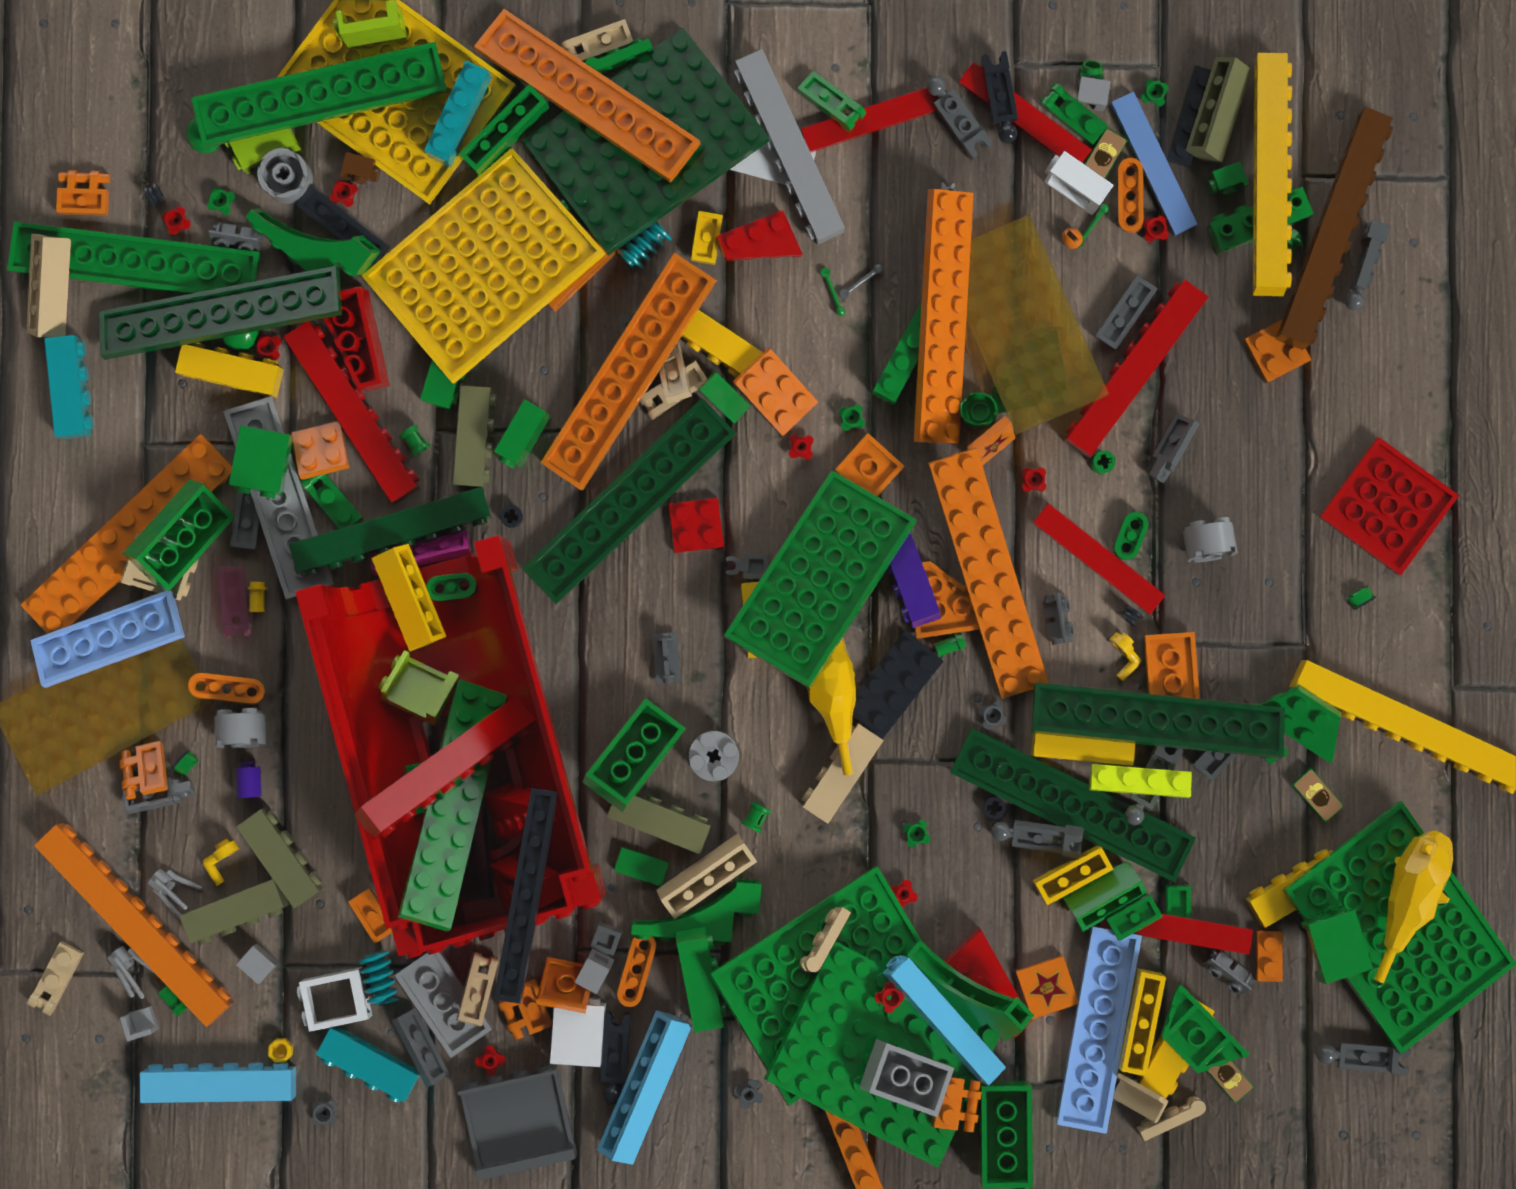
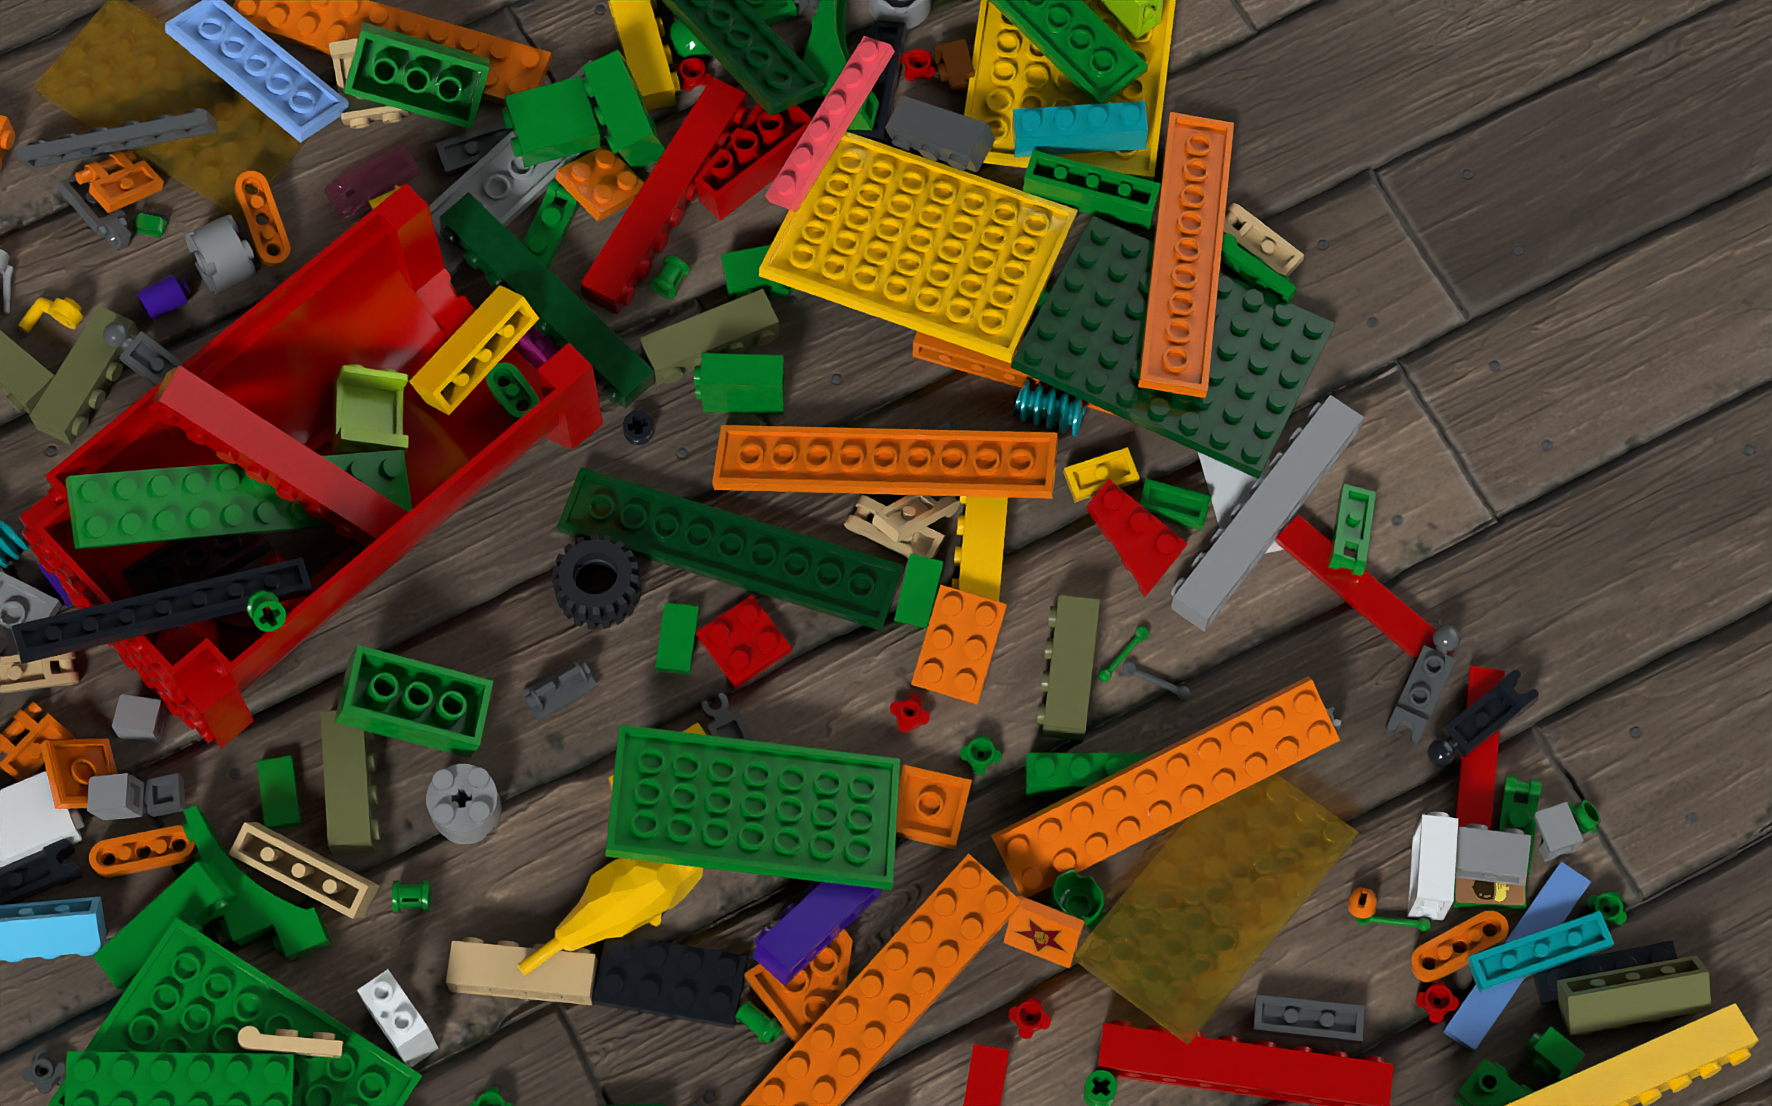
camera: 60 degrees right, 20 degrees down
(116, 748) = (106, 141): none -> dark grey plate
(279, 410) = (622, 111): none -> green wedge
(301, 808) = (141, 353): none -> dark grey plate
(367, 277) = (829, 123): none -> coral plate
(409, 208) = (939, 134): none -> dark grey brick
(547, 933) = (139, 718): none -> light grey panel
(567, 829) = (271, 621): none -> green bush
(587, 592) = (593, 556): none -> black tyre
(671, 566) = (677, 638): none -> green tile
(749, 202) = (1175, 503): none -> green tile
(826, 330) = (1070, 667): none -> olive brick
(831, 864) = (398, 1019): none -> white window
(1092, 141) = (1492, 855): none -> light grey brick
(1163, 149) = (1540, 951): none -> teal plate

